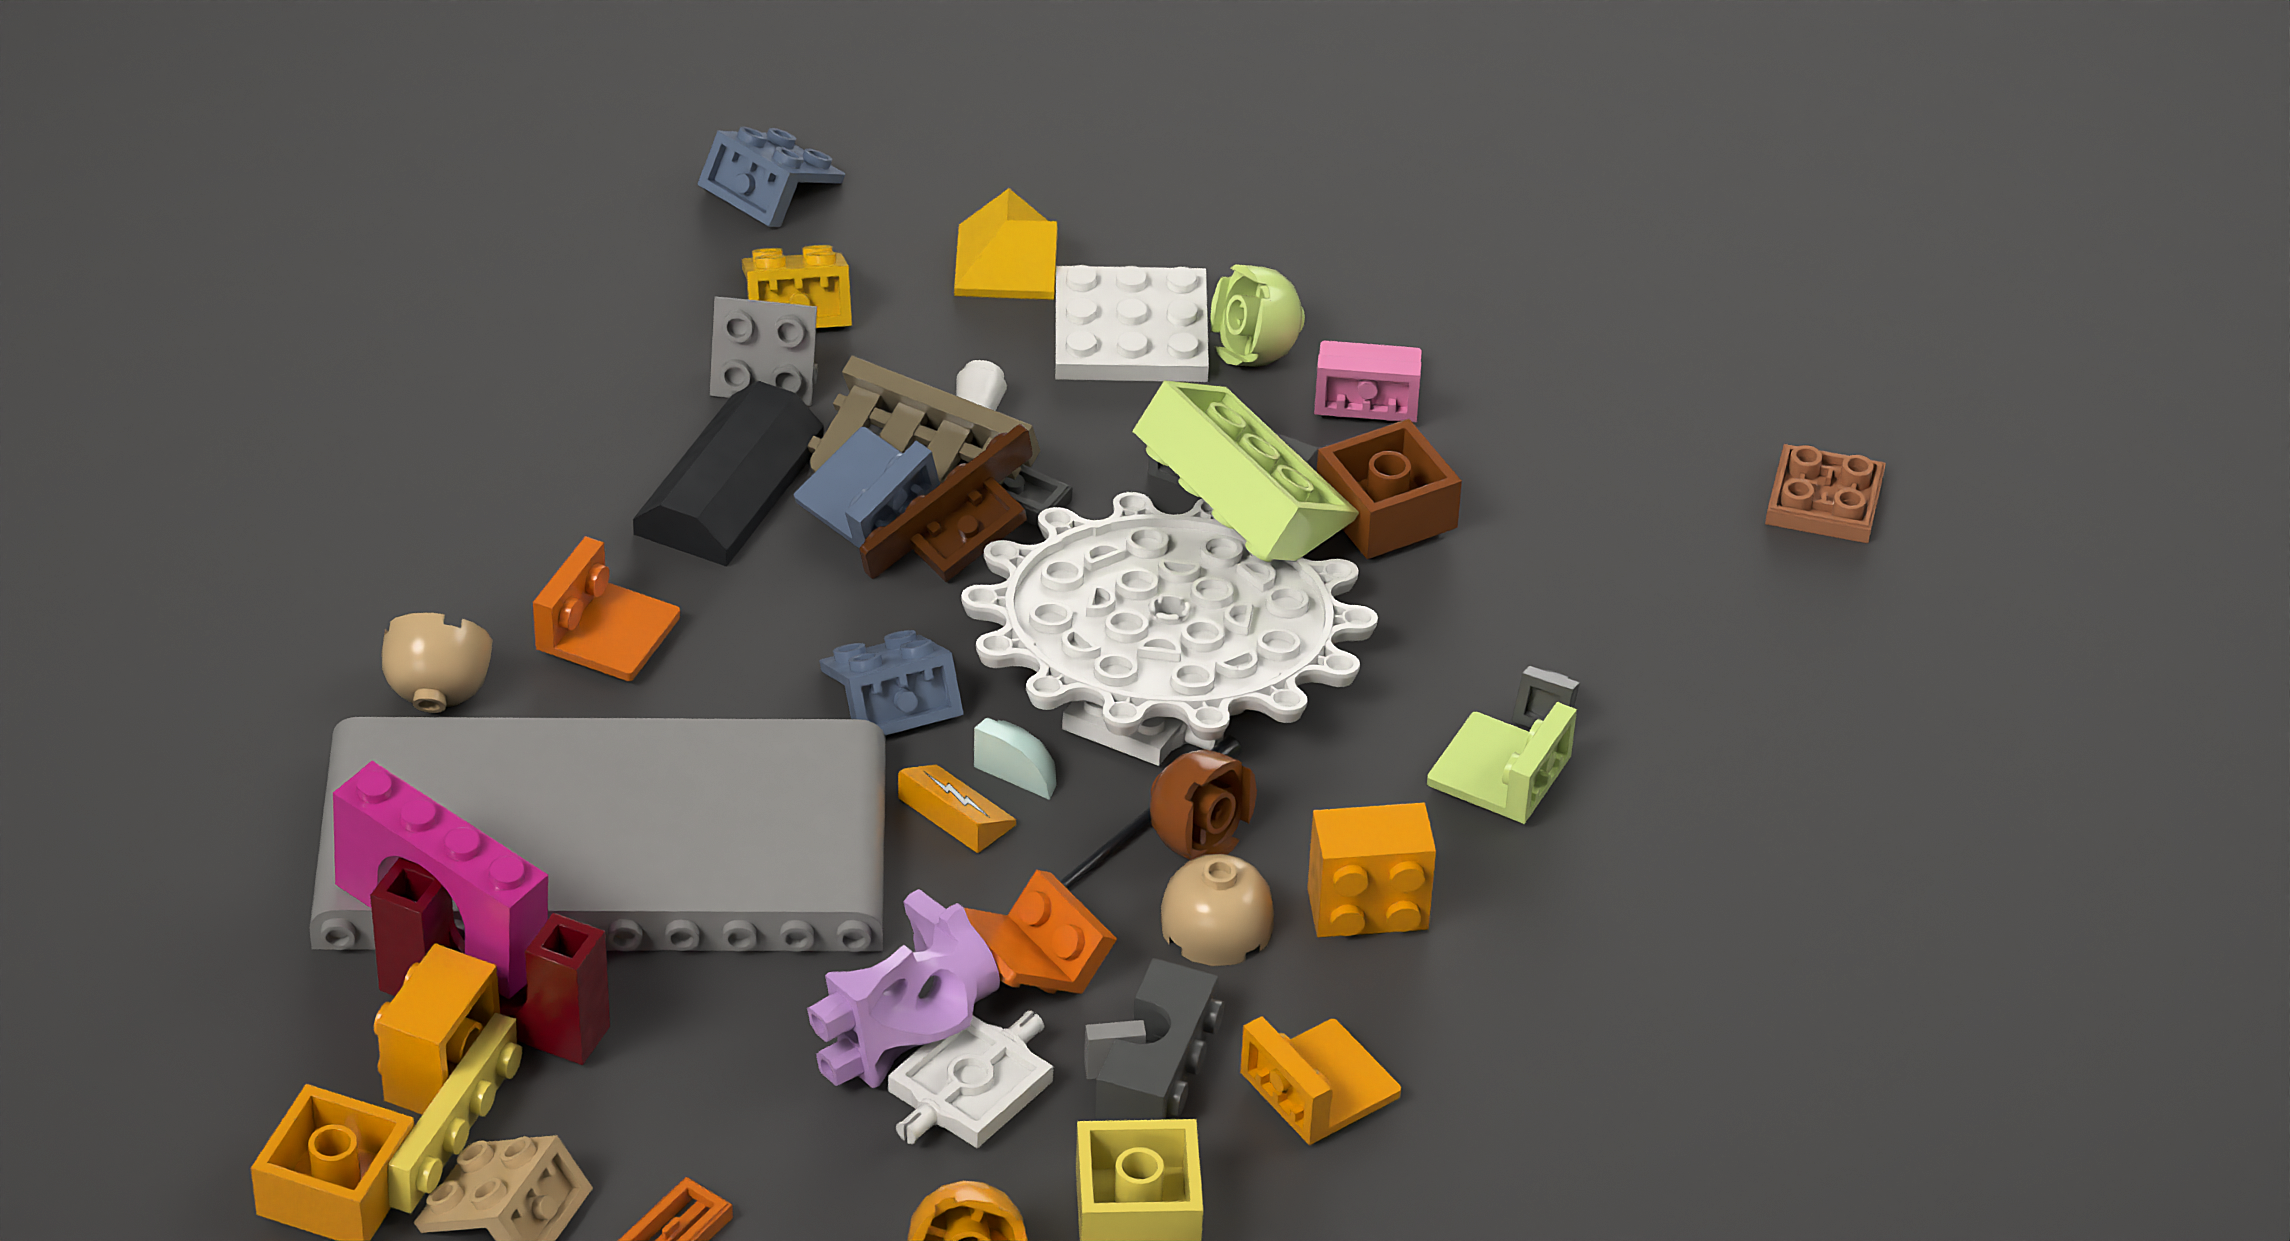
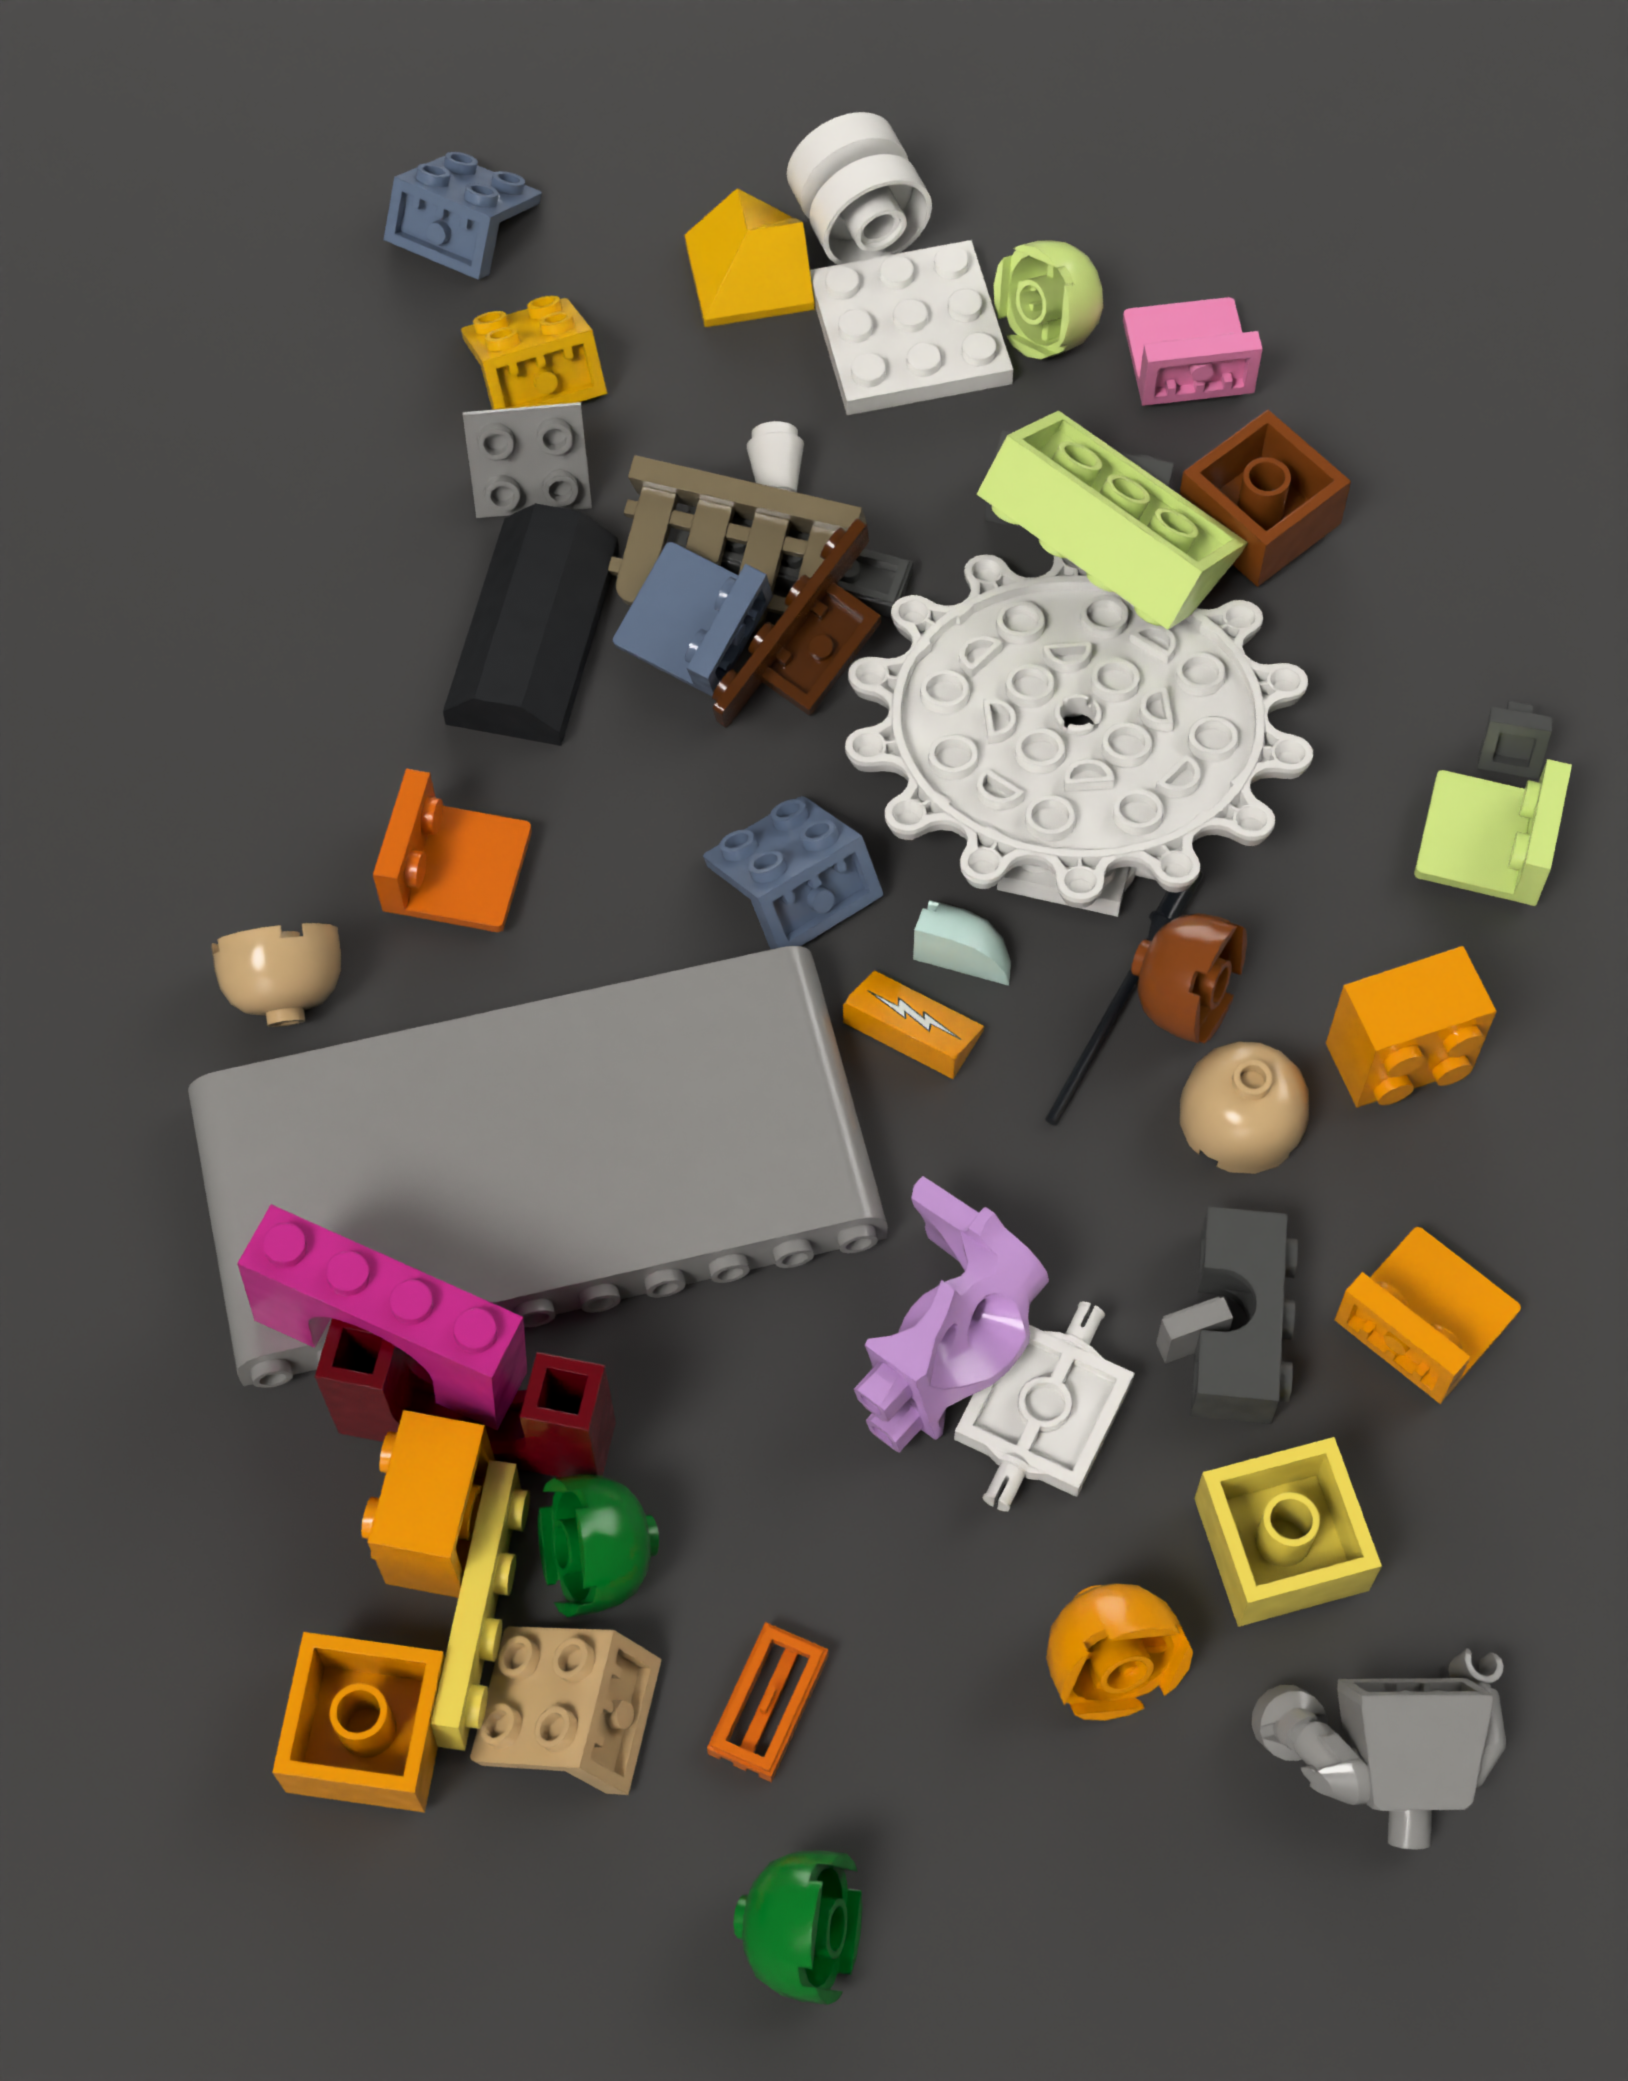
camera: 10 degrees left, 20 degrees up
(565, 1087) = (594, 1543): none -> green cylinder
(1045, 938) = (1068, 1199): orange bracket -> none
(1115, 207) = (858, 188): none -> white wheel

